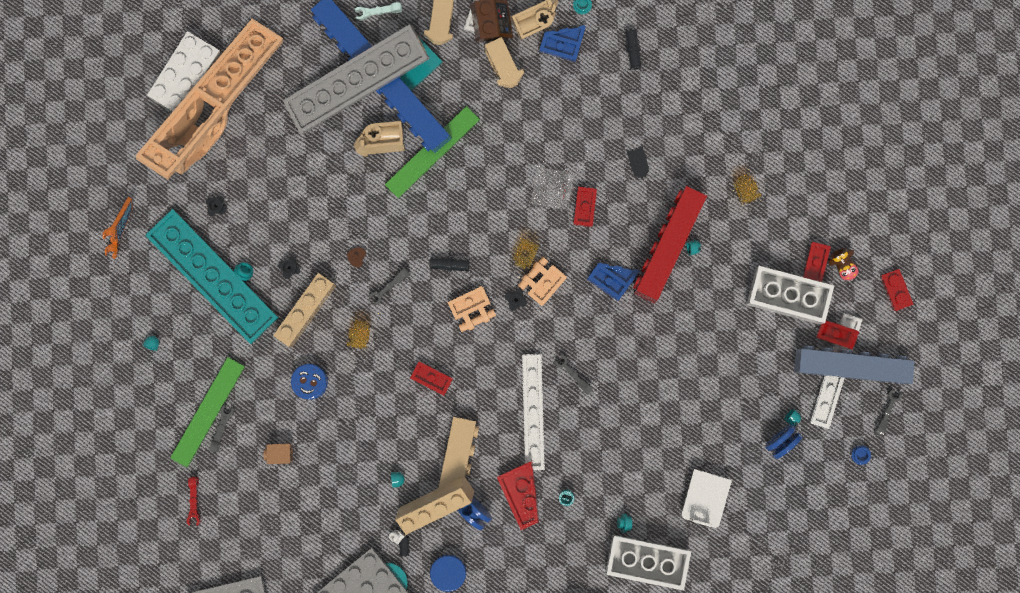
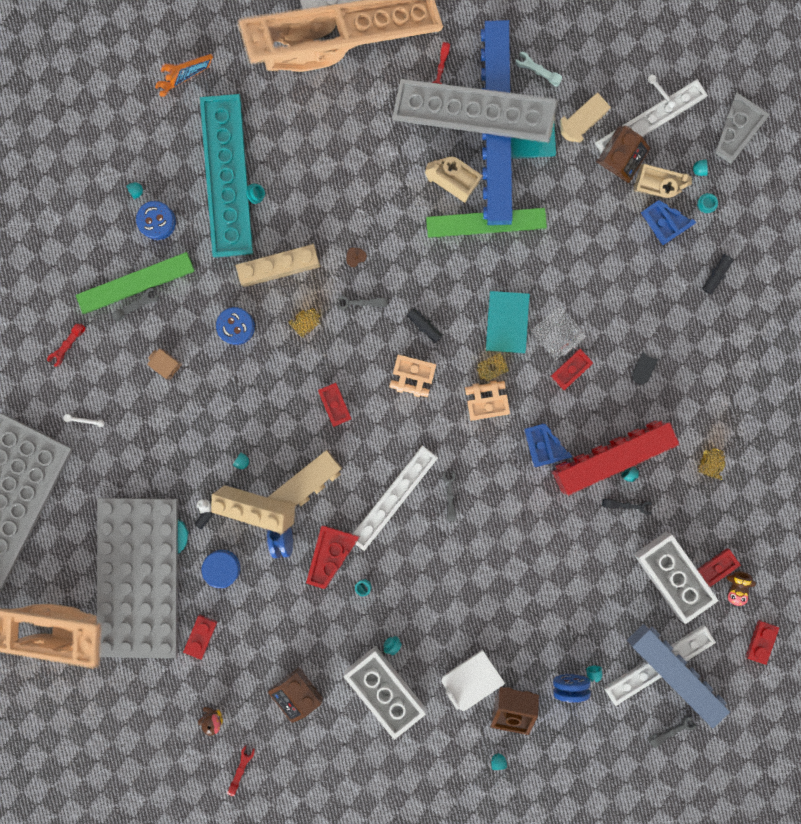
camera: 35 degrees right, 5 degrees up
(186, 352) = (156, 220): none -> blue head
(210, 205) = (270, 122): black plate -> none
(239, 556) = (68, 418): none -> white hinge
(284, 267) = (289, 220): black plate -> none
(299, 55) = (443, 56): none -> red piece
(503, 64) = (603, 197): tan piece -> none
(509, 211) = (507, 322): none -> teal tile
(514, 305) = (450, 393): black plate -> none
(699, 280) = (608, 503): none -> black piece
(757, 495) = (515, 711): none -> reddish brown slope
(778, 544) = (498, 762): none -> teal hinge
(838, 334) = (687, 640): red plate -> none
(861, 455) = (622, 747): blue plate -> none

